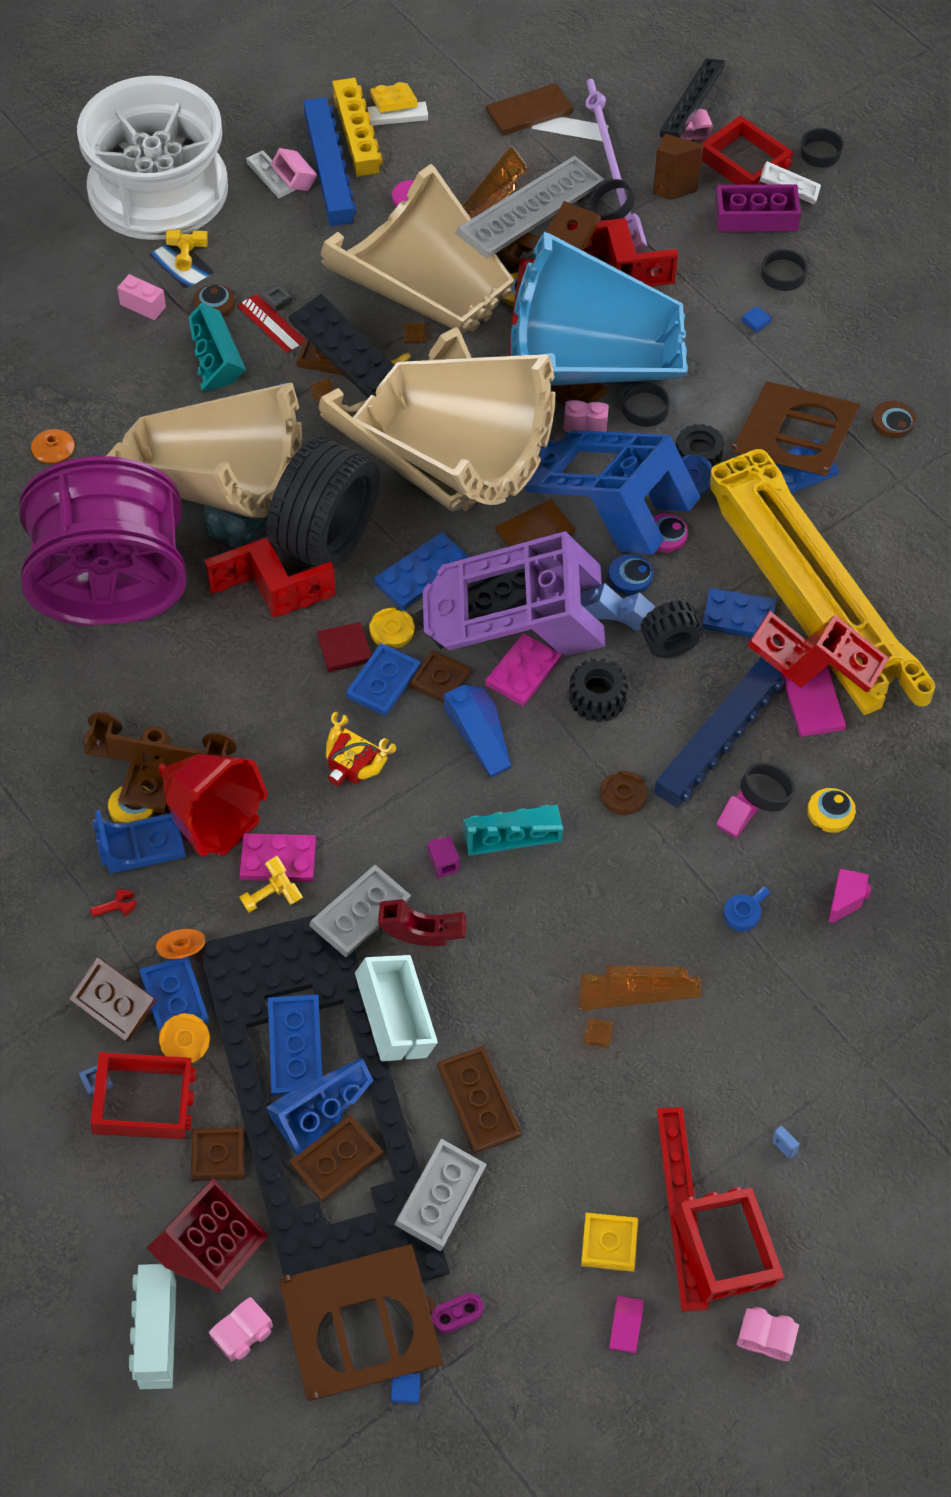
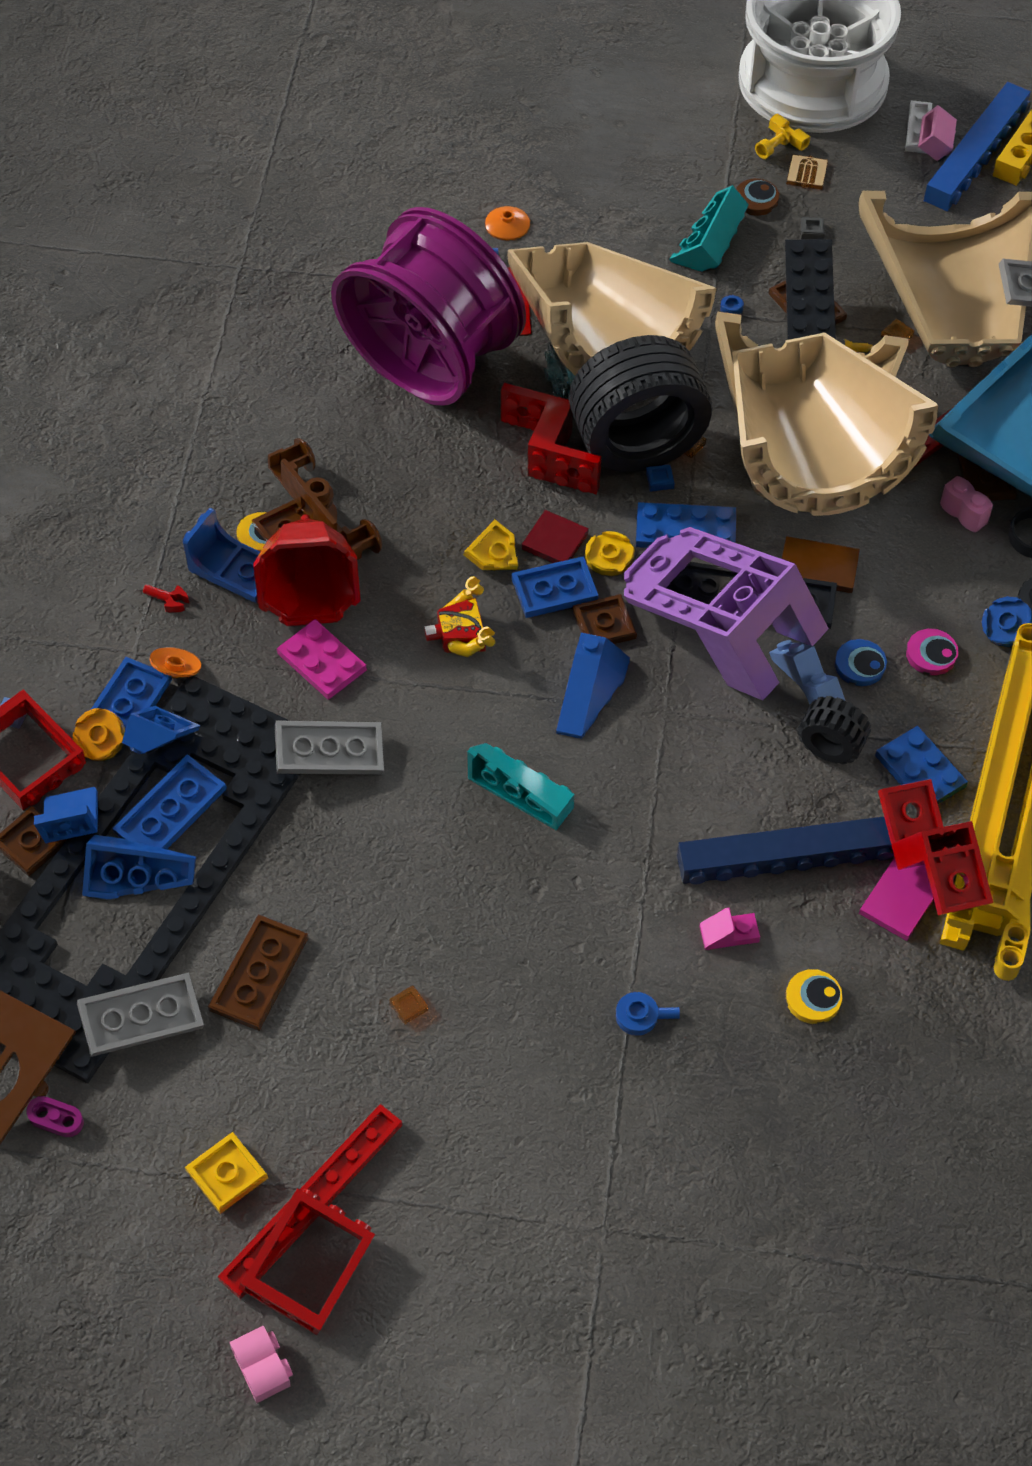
camera: 45 degrees right, 0 degrees up
(113, 999) = (83, 662): plate -> none
(141, 297) = (699, 153): bright pink brick -> none
(166, 256) = (771, 165): sticker -> none
(228, 259) = (807, 171): none -> piece
(232, 998) = (155, 728): none -> blue slope
(234, 1108) = (68, 815): none -> blue bracket
(271, 323) = (785, 227): red sticker -> none
(278, 883) = (293, 676): yellow bar -> none
(312, 685) = (493, 549): none -> yellow plate
(320, 389) = (766, 326): clear orange tile -> none
(336, 1158) = (103, 919): reddish brown plate -> none
(367, 550) = (660, 477): none -> blue tile
(395, 1008) = (267, 843): light aqua piece -> none
(418, 928) = (357, 796): dark red arch -> none
(443, 856) = (442, 761): magenta brick -> none
(523, 669) = (678, 669): dark pink plate -> none
(598, 675) = (719, 714): black tyre -> none
(623, 793) = (649, 833): reddish brown tile -> none
(626, 1324) = (167, 1246): dark pink slope -> none
(636, 986) = (479, 994): clear orange wedge -> none
(642, 468) = (950, 566): blue bracket -> none
(775, 773) = (790, 911): black tyre -> none
(785, 1142) = (452, 1228): medium blue tile -> none
(849, 894) = (742, 1077): dark pink slope -> none

